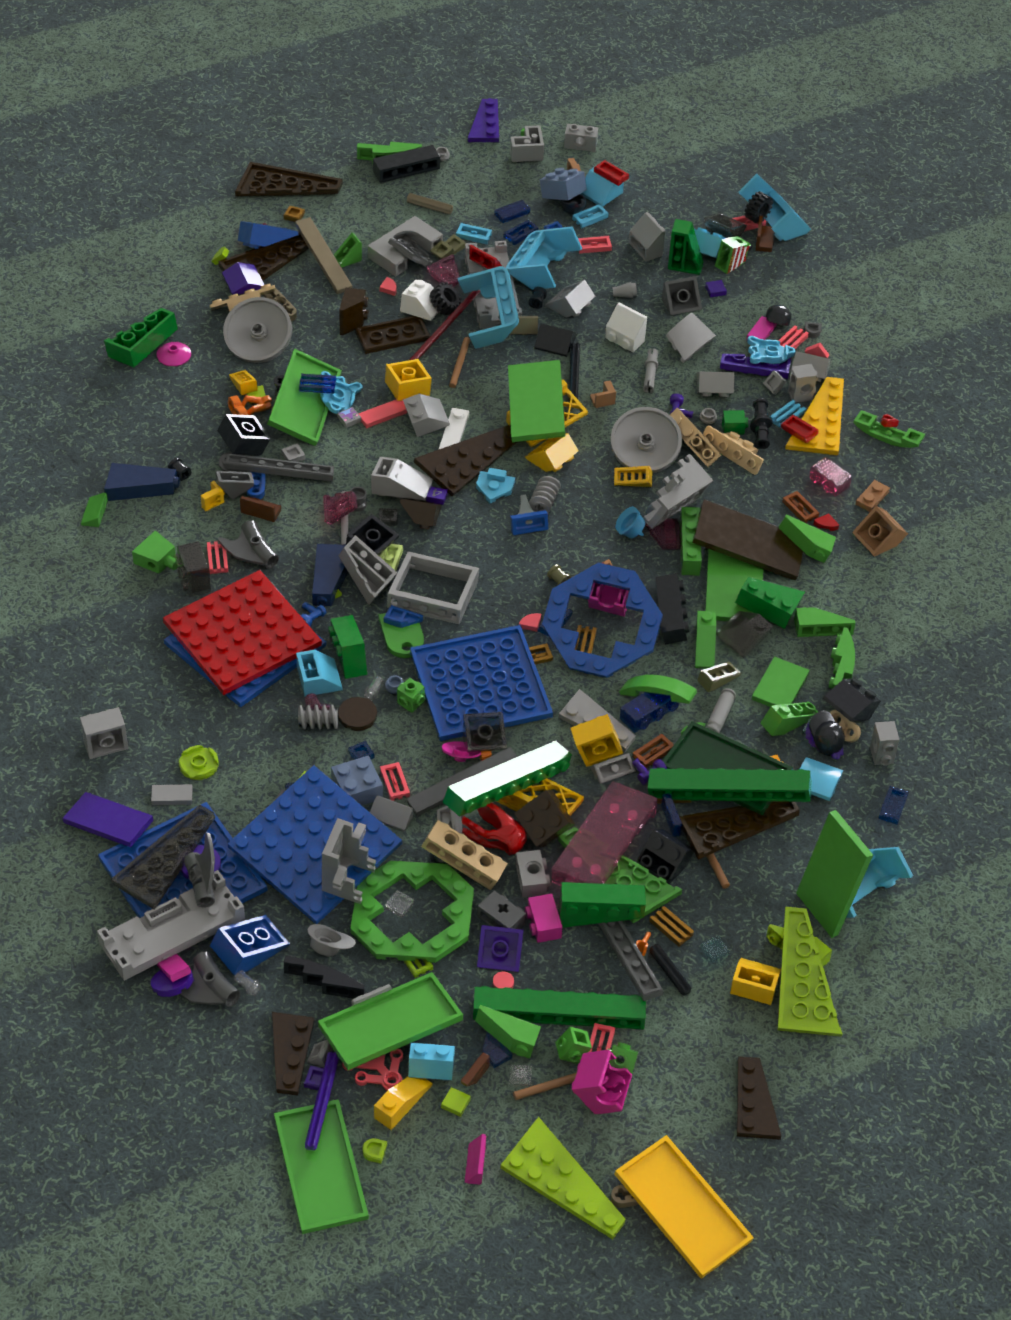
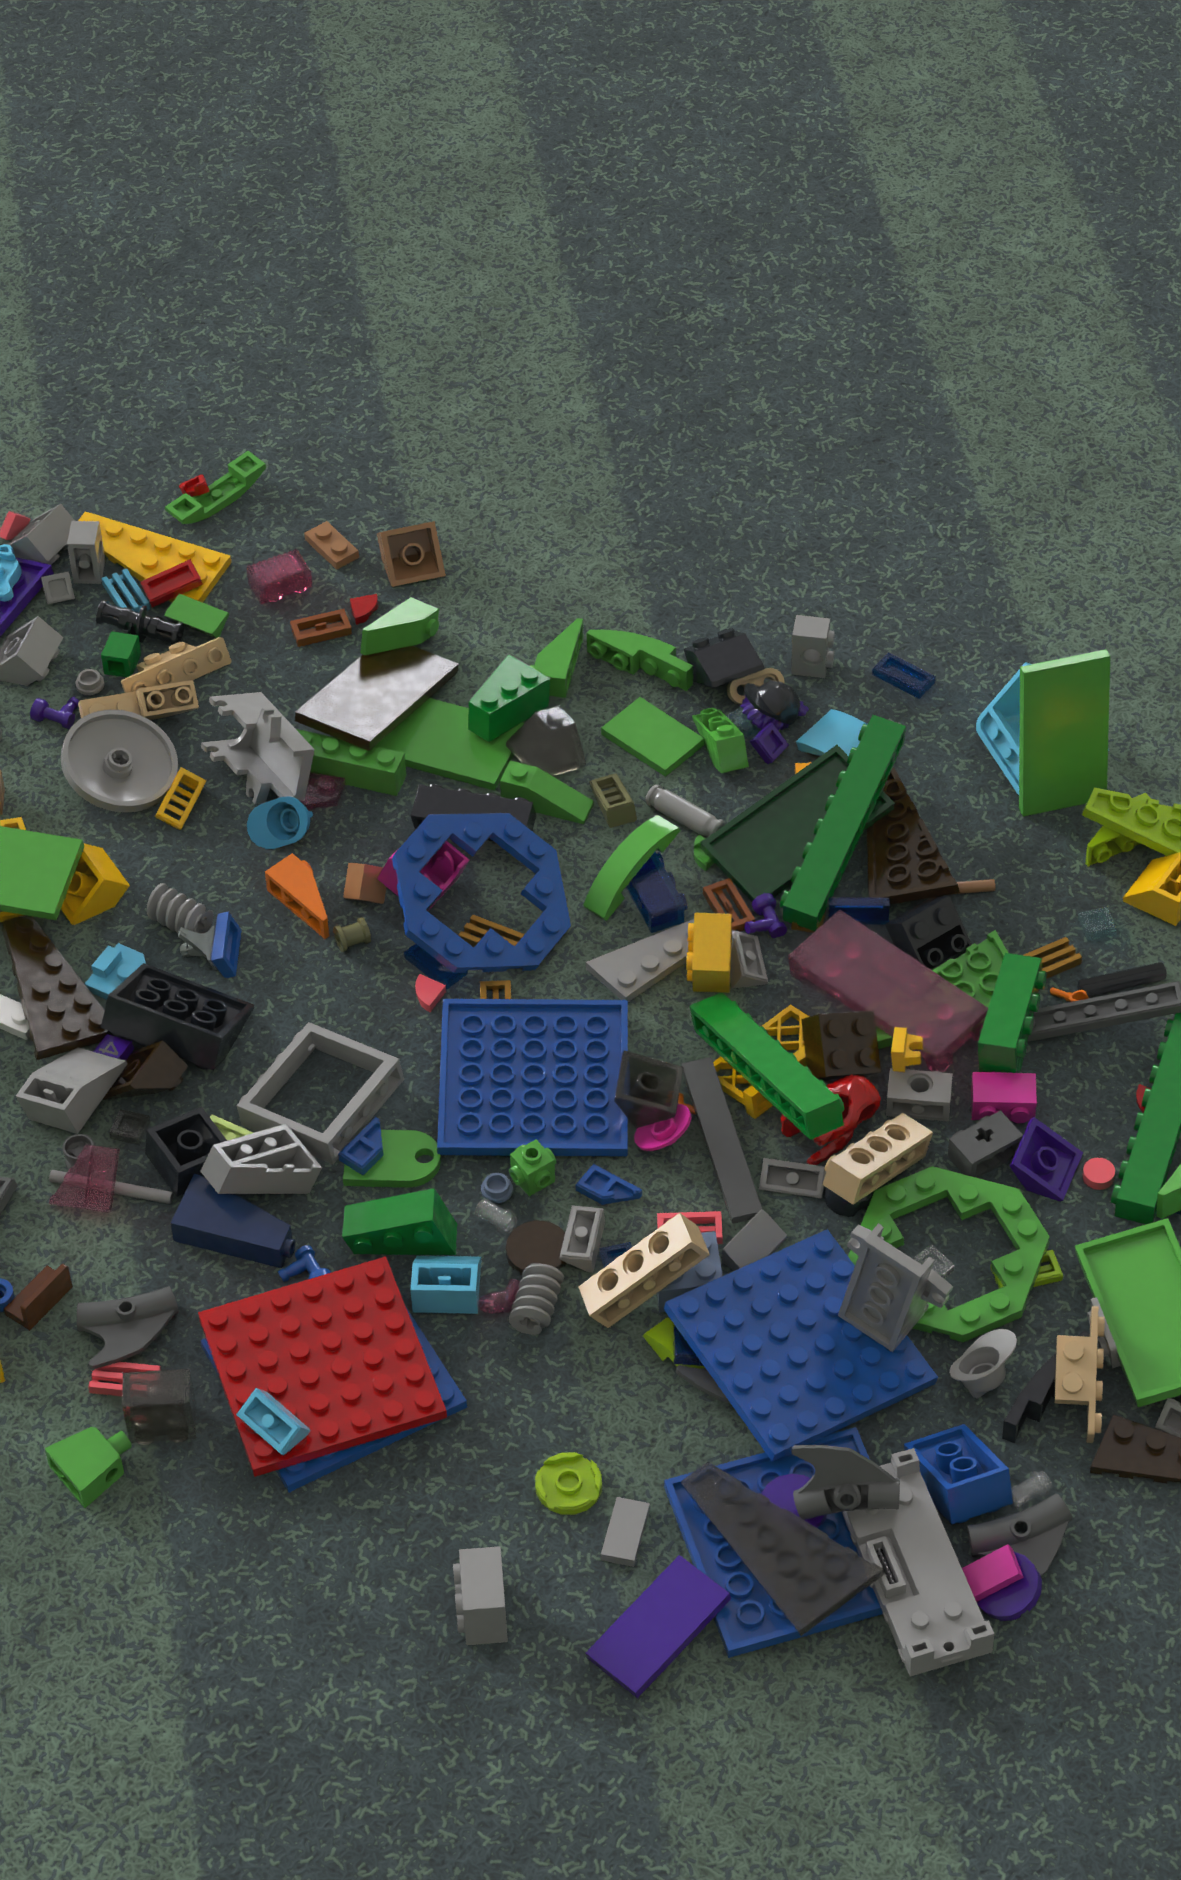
camera: 70 degrees left, 0 degrees up
(192, 615) = (272, 1421): none -> medium azure slope
(330, 987) = (1077, 1370): none -> tan bracket
(338, 753) = (643, 1270): none -> tan brick
(370, 731) = (583, 1237): none -> light grey slope
(413, 735) = (606, 1187): none -> blue tile
(468, 512) = (184, 1014): none -> black slope
(549, 847) = (902, 1049): none -> yellow tile
(582, 545) = (296, 888): none -> orange slope
(779, 447) = (197, 615): none -> bright green slope
(796, 742) = (769, 743): none -> dark purple tile

